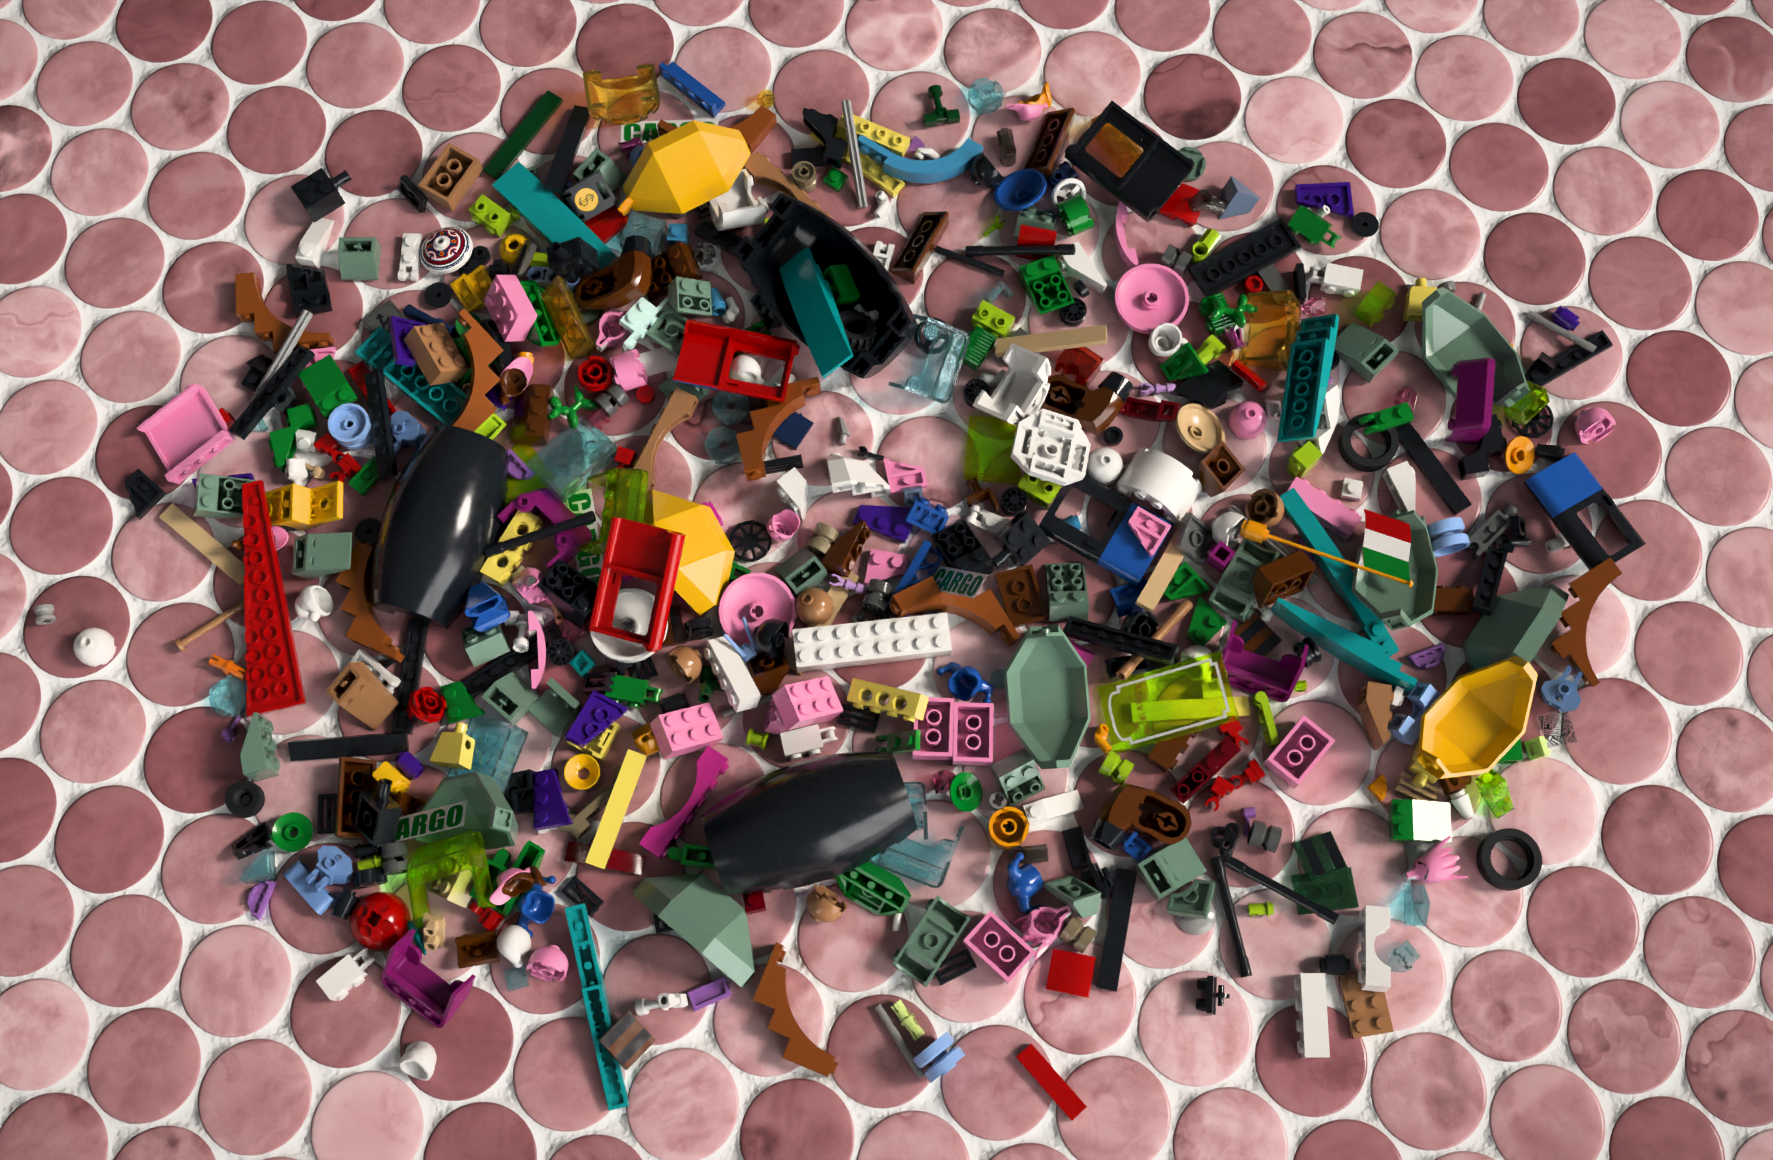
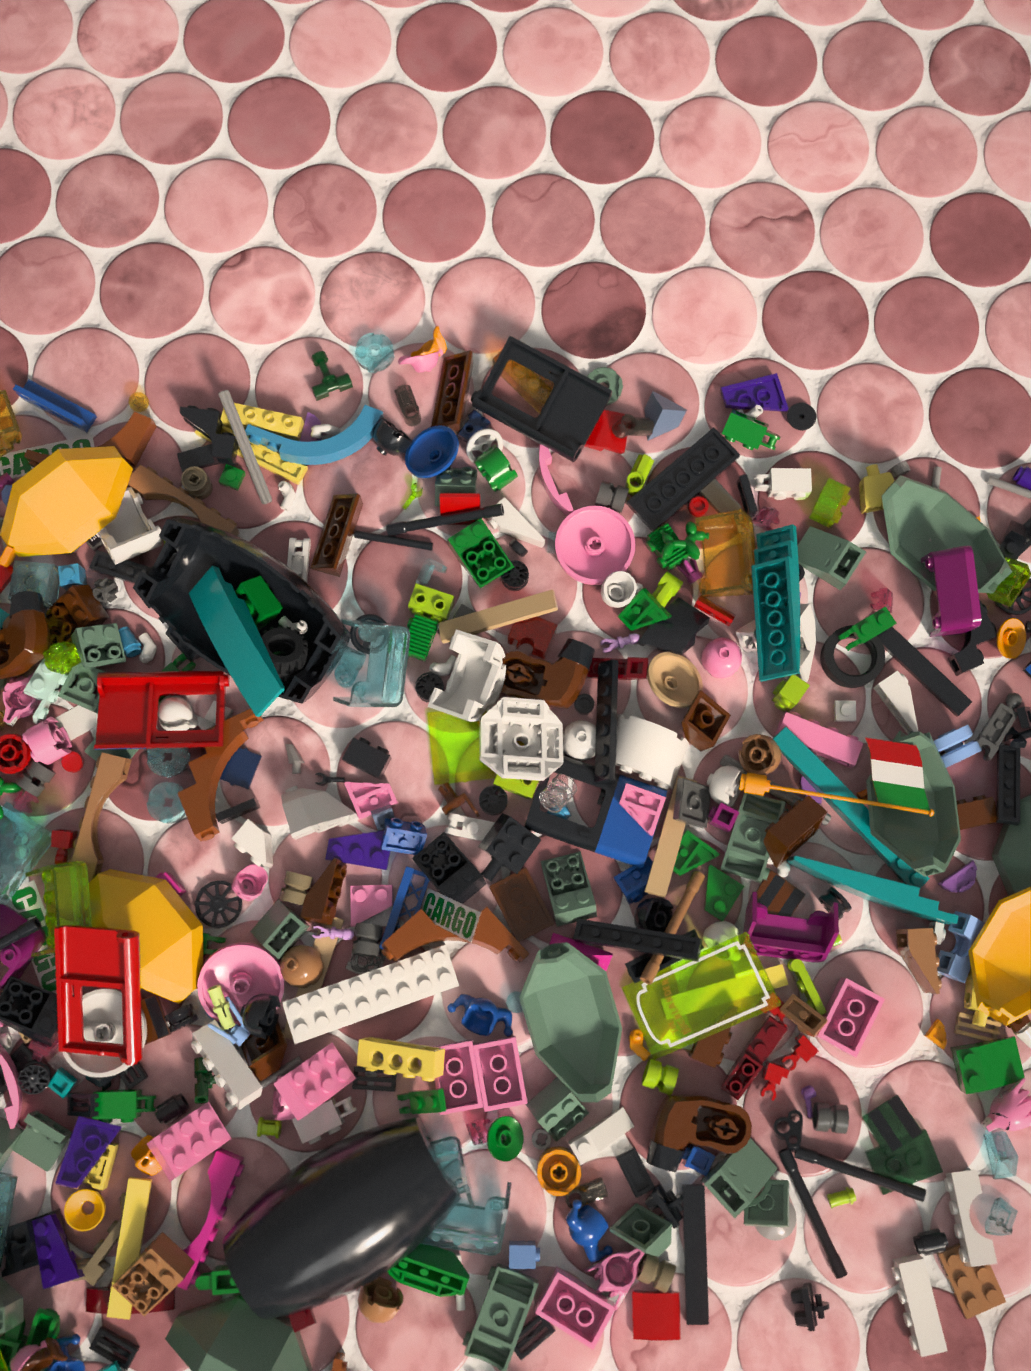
camera: 15 degrees left, 5 degrees up
(633, 833) = (154, 1274): none -> medium nougat slope
(658, 298) = (61, 657): none -> clear neon green brick
(685, 662) = (174, 1060): medium nougat cylinder -> none
(737, 623) = (221, 1008): none -> yellowish green pin
(907, 361) = (350, 663): none -> clear light blue piece
(908, 442) = (367, 758): none -> black brick
(961, 894) = (523, 1255): none -> medium blue brick
(1074, 503) = (558, 793): none -> clear wheel
(1130, 451) = (606, 721): none -> black plate
(1259, 741) = (803, 1015): none -> medium nougat slope

